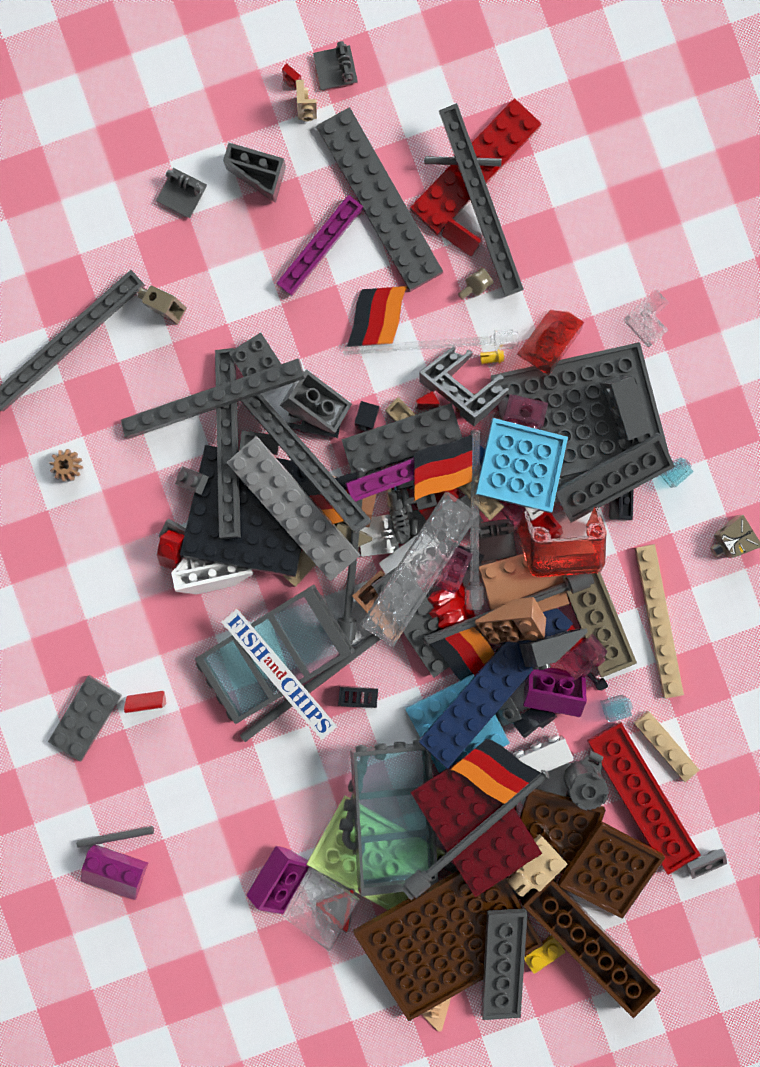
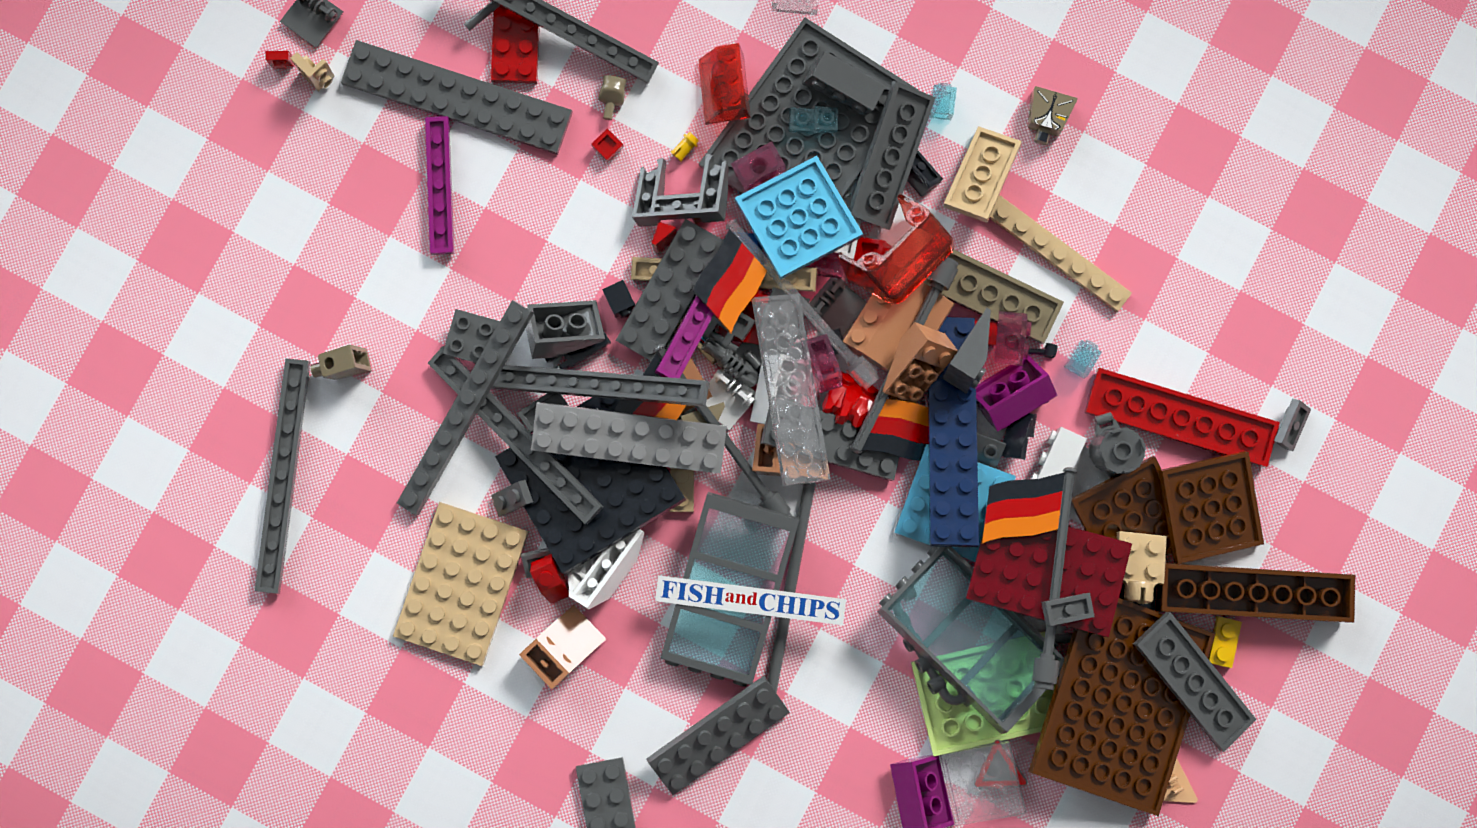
camera: 35 degrees left, 5 degrees down
(72, 461) = (378, 583): medium nougat gear -> none
(116, 503) = (461, 584): none -> tan plate
(142, 598) = (562, 647): none -> slope
(145, 701) = (649, 741): red slope -> none
(181, 192) = (269, 249): dark grey hinge -> none
(188, 735) = (718, 735): none -> dark grey plate
(256, 168) = (321, 168): dark grey wedge -> none
(351, 689) = (825, 571): black slope -> none
(378, 320) = (552, 204): flag -> none
(445, 313) = (607, 145): none -> red plate
(461, 237) = (561, 66): red slope -> none
(465, 860) = (1067, 609): none -> dark grey plate
(585, 412) = (813, 120): none -> clear light blue slope
(659, 540) = (982, 174): none -> tan plate
(666, 746) = (1159, 353): tan plate -> none

